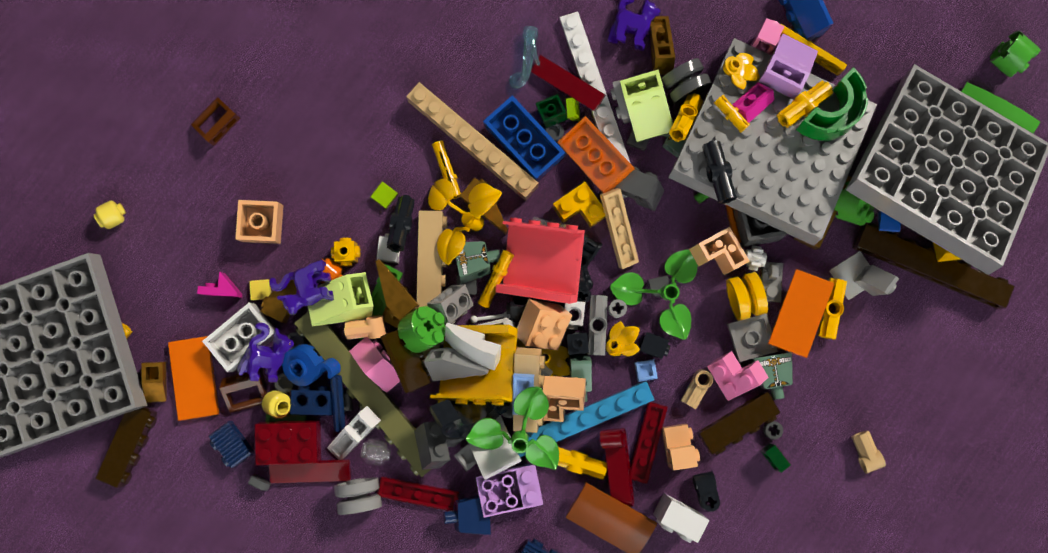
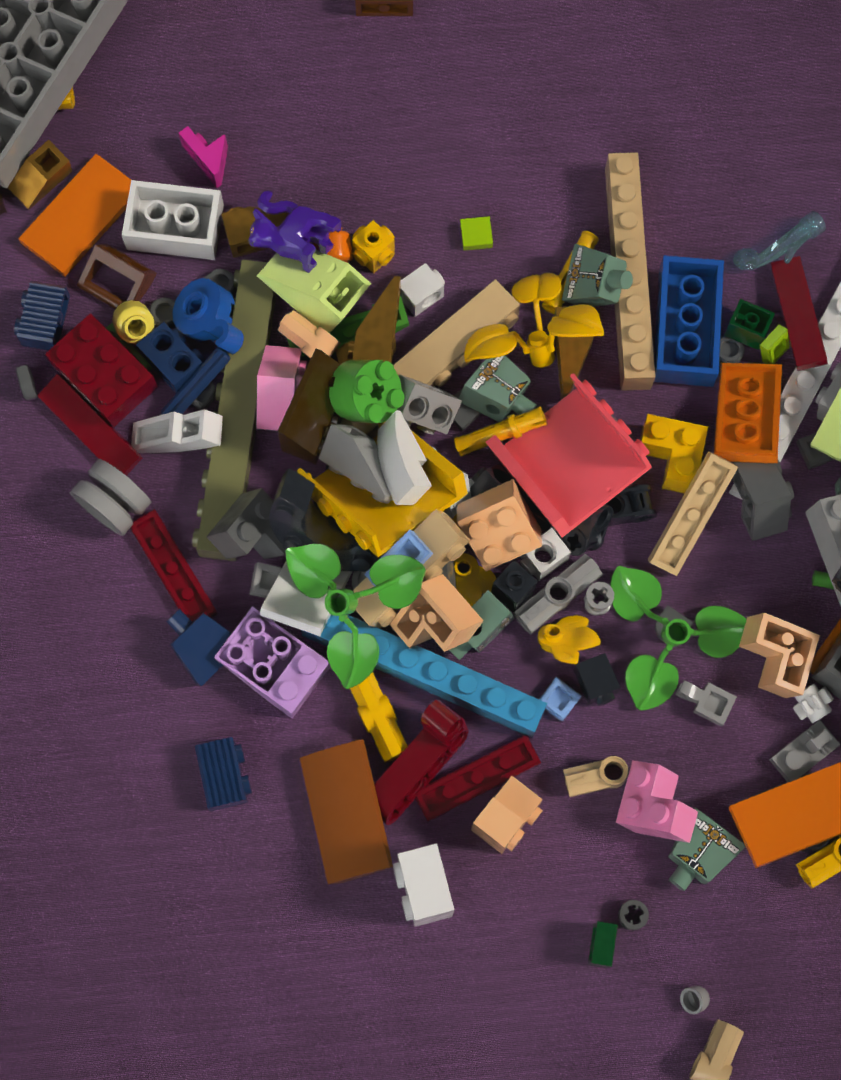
camera: 45 degrees right, 10 degrees down
(259, 221) = (319, 128): light nougat brick -> none
(259, 289) = (243, 195): light yellow tile -> none
(264, 357) = (174, 257): dark purple animal -> none
(375, 452) = (177, 476): clear head -> none
(400, 223) = (461, 272): black piece -> none
(462, 162) = (595, 278): none -> sand green torso
(706, 487) = (487, 894): black piece -> none
(711, 303) = (710, 702): none -> light grey plate
(738, 423) = (603, 863): dark brown brick -> none
(747, 296) = (764, 733): yellow wheel -> none
(751, 337) = (716, 784): light grey plate -> none
(834, 438) = (694, 999): none -> light grey hinge

